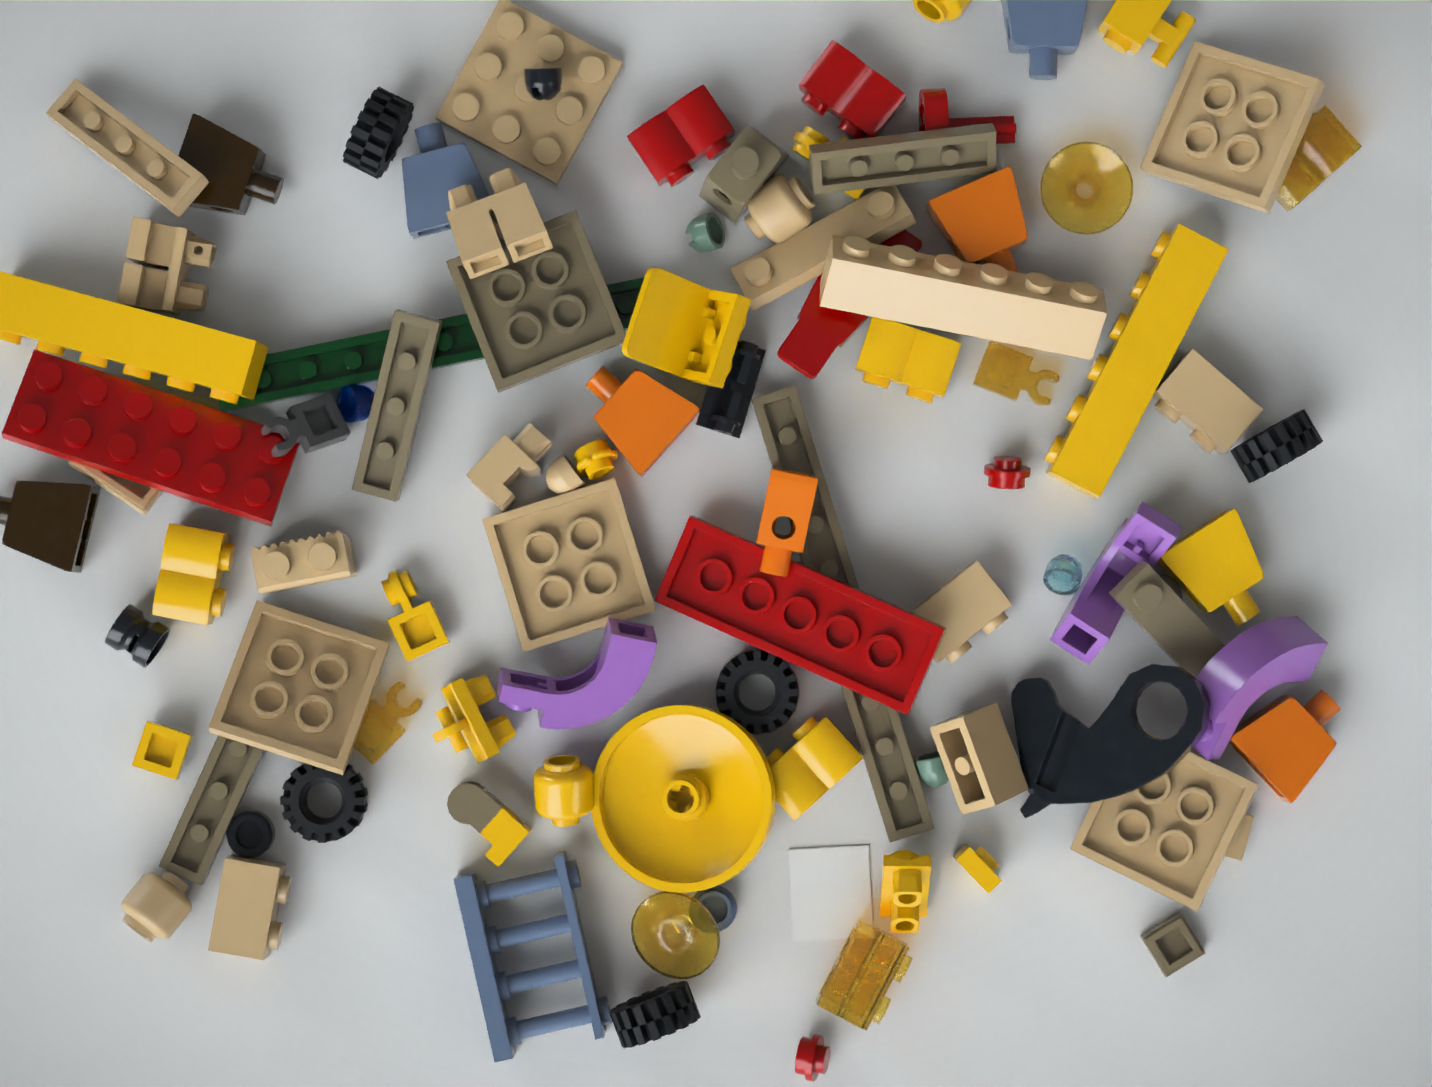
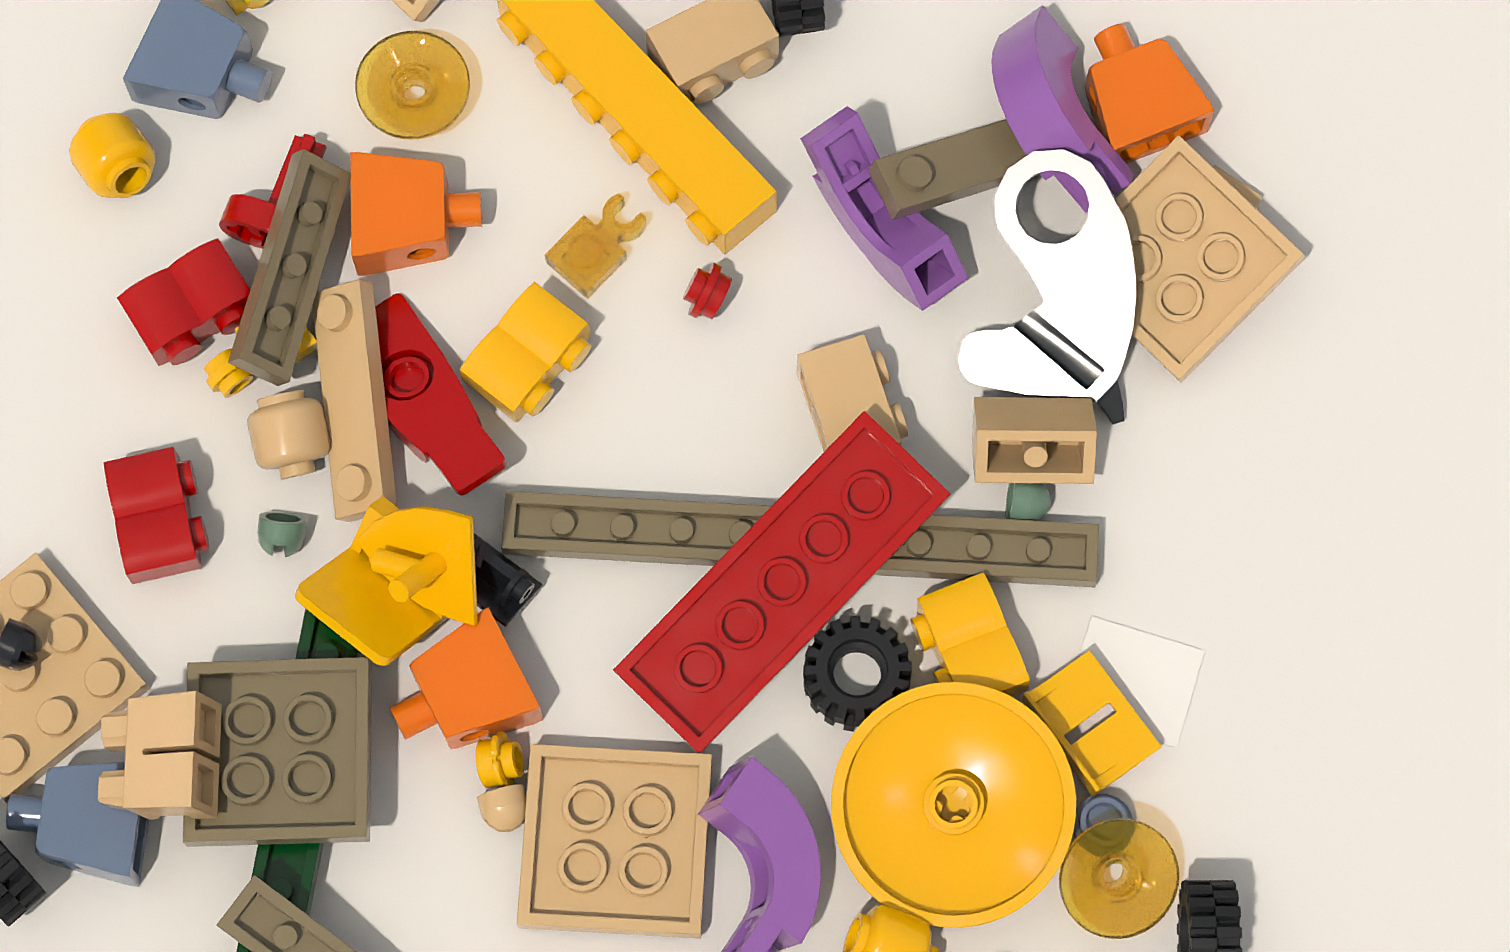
camera: 70 degrees left, 15 degrees down
(505, 464) = (458, 853): tan hips -> none
(715, 351) = (427, 559): none -> yellow shield
(741, 173) = (228, 455): dark tan torso -> none
(770, 893) = (1110, 747): none -> yellow piece
(791, 496) = (641, 527): orange torso -> none
(812, 1057) = (1327, 770): red plate -> none
(863, 975) = (1247, 671): clear yellow brick -> none
(905, 890) = (1160, 583): yellow hips -> none
(962, 297) = (478, 260): tan brick -> none
(979, 866) = (1163, 491): yellow plate -> none
(1063, 574) = (852, 280): clear light blue hinge -> none
(1172, 944) = (1334, 310): dark tan tile -> none
(1216, 567) = (908, 95): yellow torso -> none

